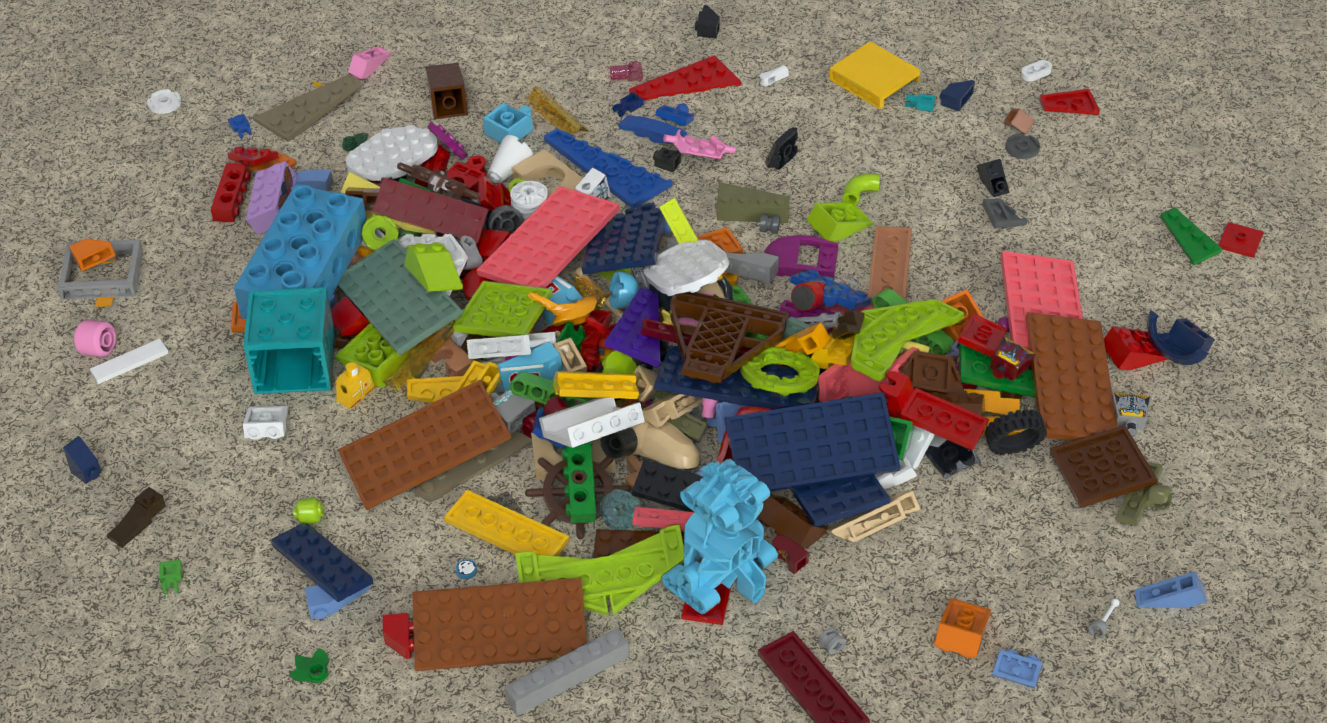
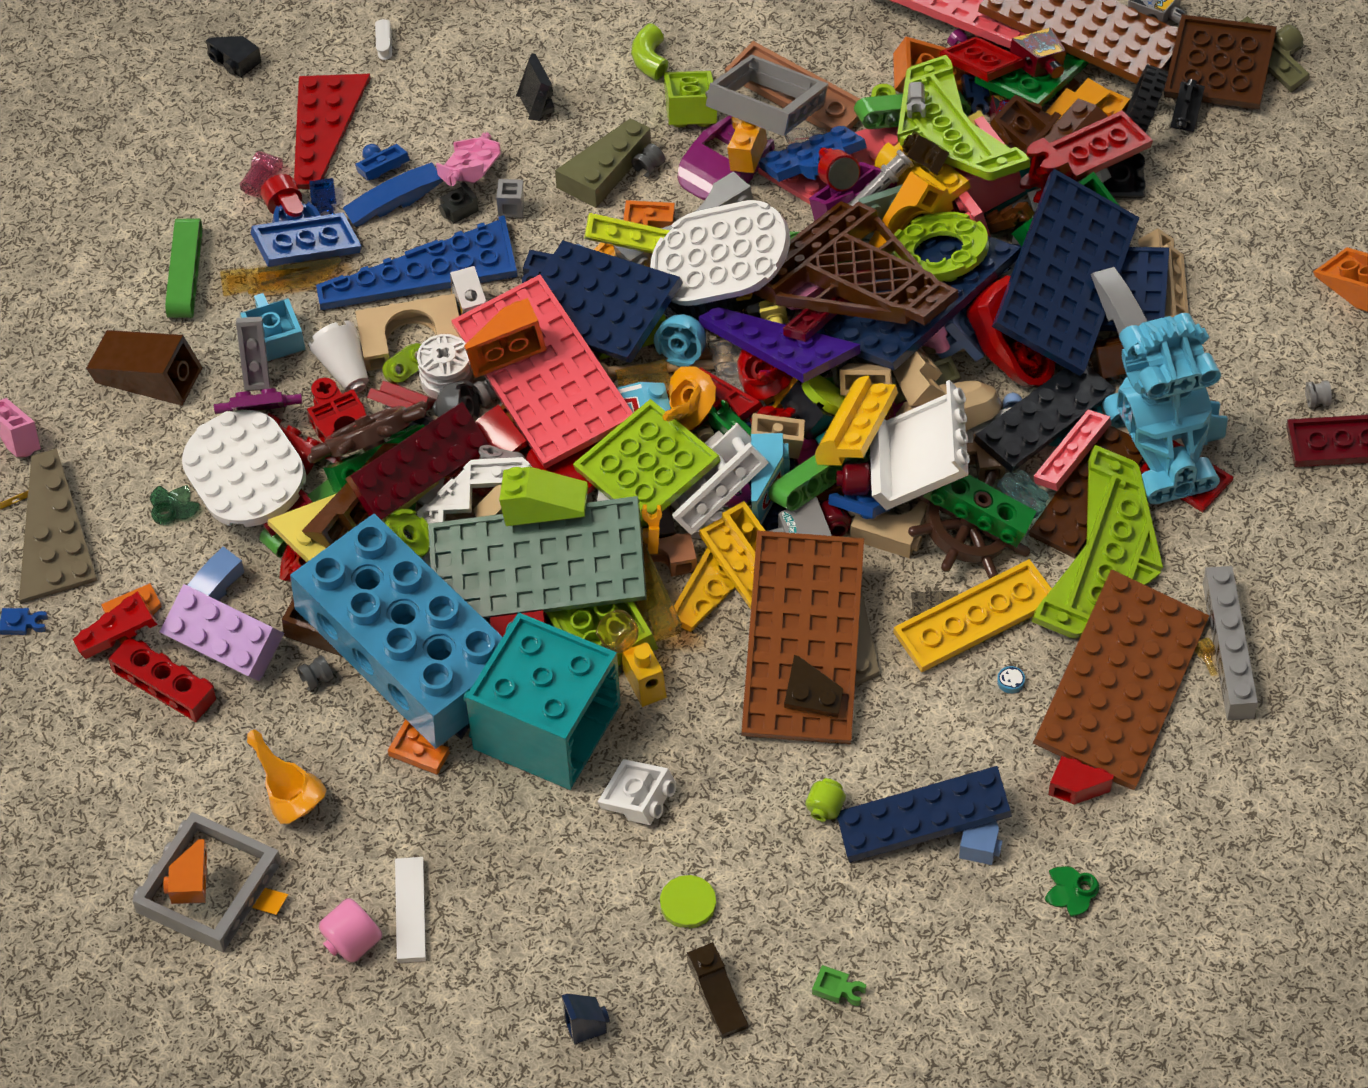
camera: 60 degrees left, 10 degrees up
(183, 271) = (289, 787): none -> light orange hat
(199, 480) = (688, 901): none -> lime tile
(364, 353) = (617, 631): none -> clear yellow hair
(384, 465) = (812, 690): none -> dark brown wing
(452, 337) = (651, 534): none -> light orange plate
(476, 119) = (253, 353): none -> light grey plate
(530, 73) = (184, 268): none -> bright green beam
(548, 205) = (505, 339): none -> orange slope
(593, 102) = (298, 229): none -> blue plate
(685, 175) = (510, 198): none -> light grey brick
(802, 493) = (1117, 299): none -> light grey slope
(809, 254) = (746, 146): none -> light orange hinge
(846, 260) = (808, 91): none -> light grey window
(899, 307) = (916, 99): none -> light grey bar
(1050, 462) = (1187, 106): none -> black hinge

